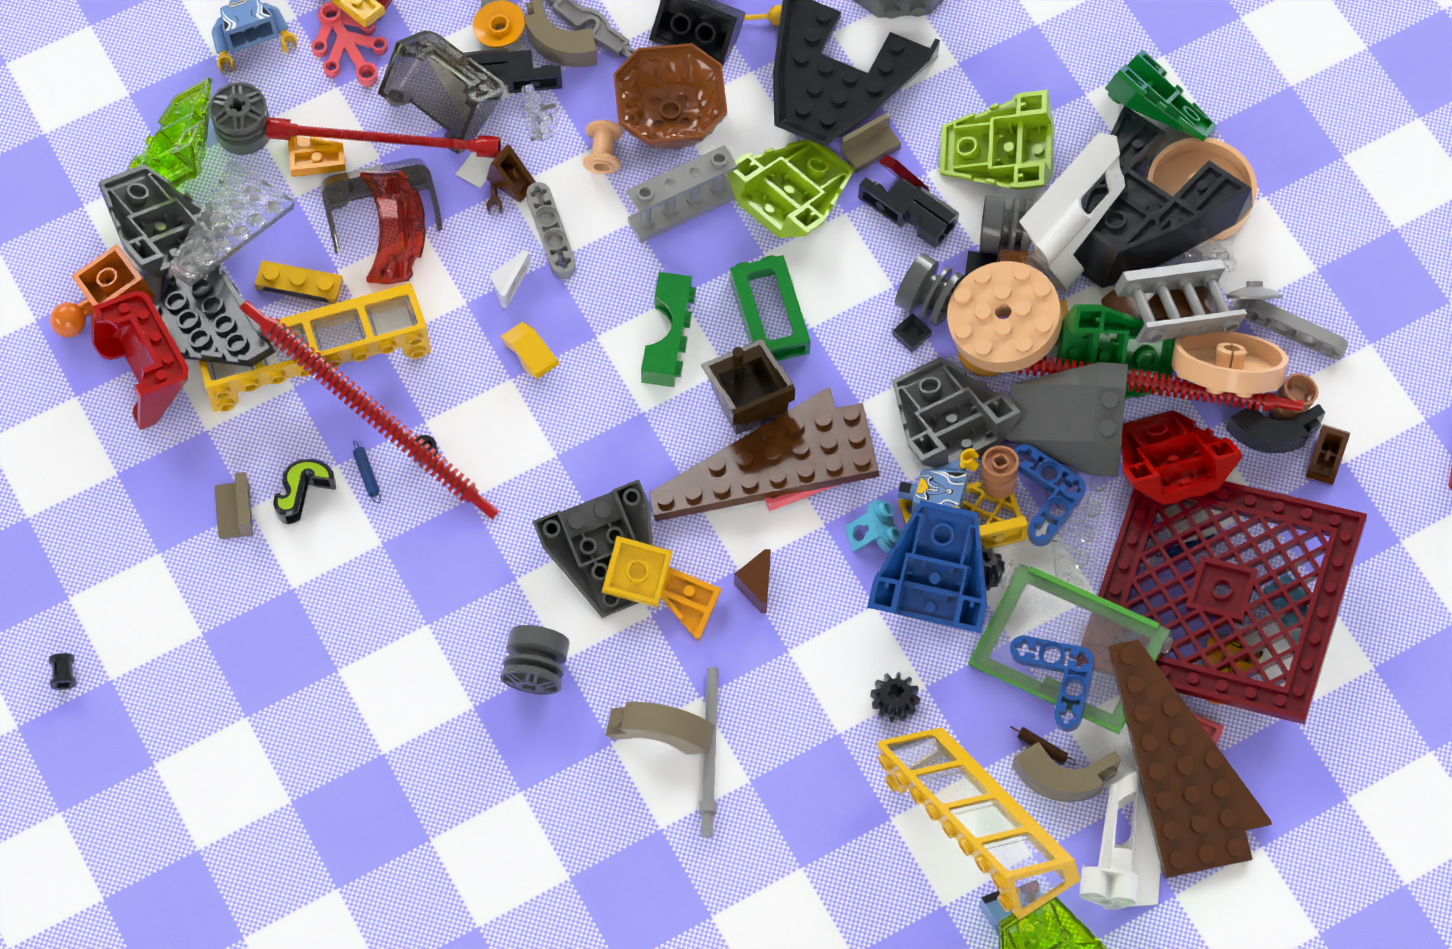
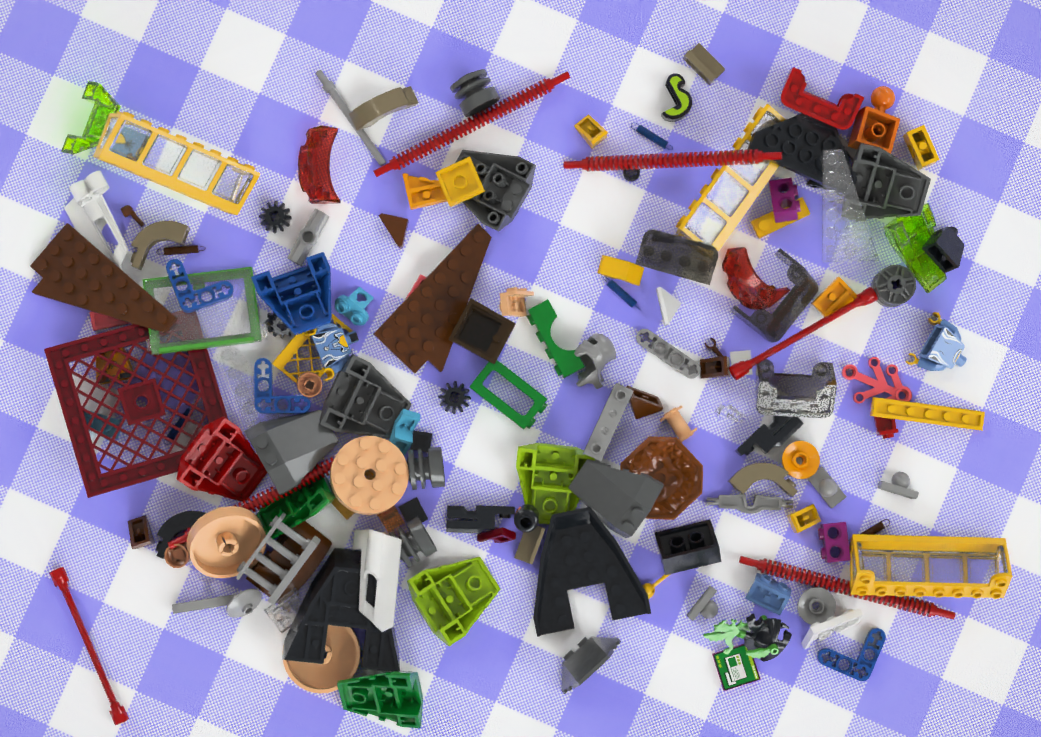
camera: 140 degrees right, 20 degrees up
(76, 236) = (921, 147): none -> yellow brick
(148, 115) = (945, 248): none -> black torso
(285, 292) = (782, 200): none -> magenta brick
(432, 522) = (591, 131): none -> yellow slope
(458, 302) = (677, 256): none -> clear smoke windscreen
(549, 327) = (621, 293): none -> blue piece
(615, 193) = (644, 403): none -> reddish brown slope
(637, 277) = (595, 354): none -> light grey piece
(683, 395) = (513, 302): none -> light nougat bracket
(698, 656) = (467, 126): none -> red hose
(736, 103) = (616, 495): none -> dark grey wedge
(804, 718) = (315, 165): none -> clear red windscreen
(828, 355) = (447, 396): none -> black gear
(855, 163) = (526, 518): none -> black head
(855, 652) = (315, 226): none -> light grey piece
(929, 353) = (403, 430): none -> medium azure slope
(1076, 839) = (128, 210): none -> reddish brown hand

